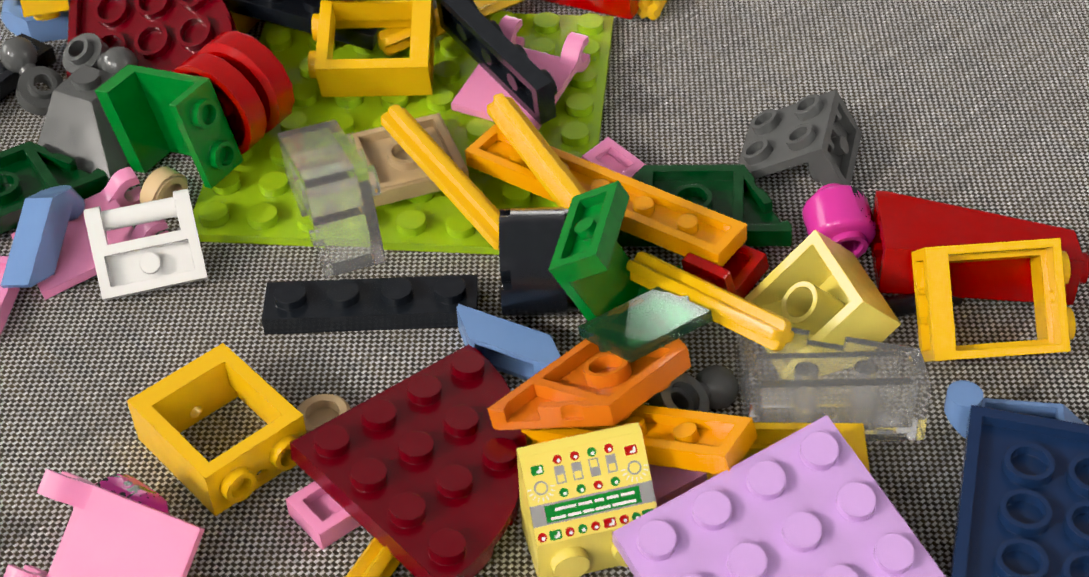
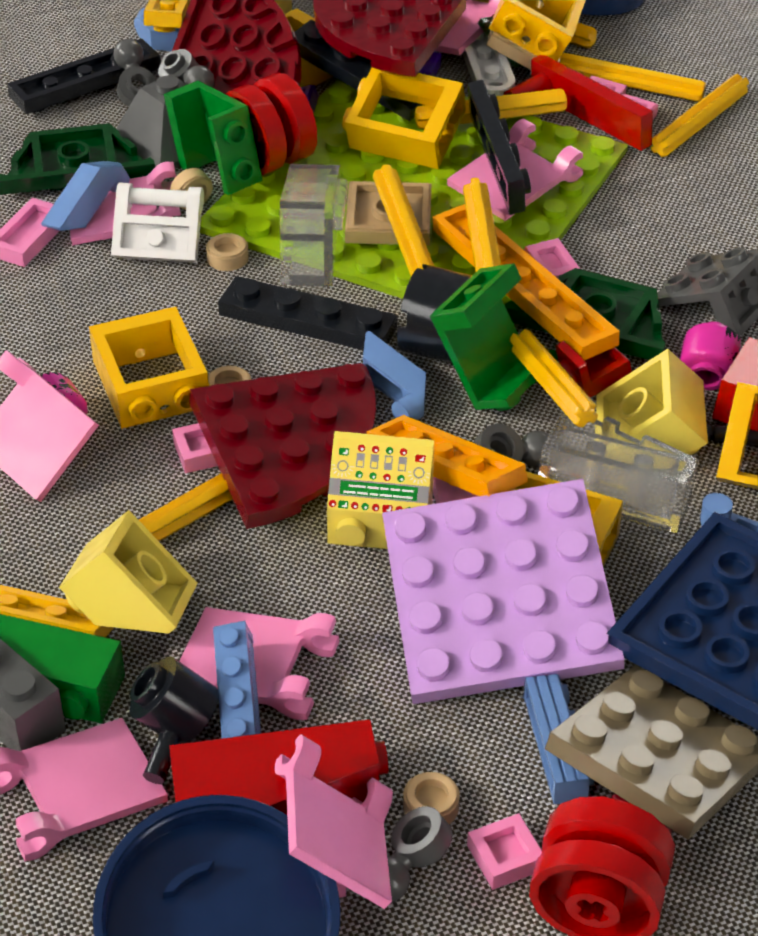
camera: 20 degrees right, 0 degrees up
(239, 256) = (227, 252): none -> tan tile
(589, 388) = (436, 409): orange wing -> none
(645, 324) = (492, 380): clear green piece -> none

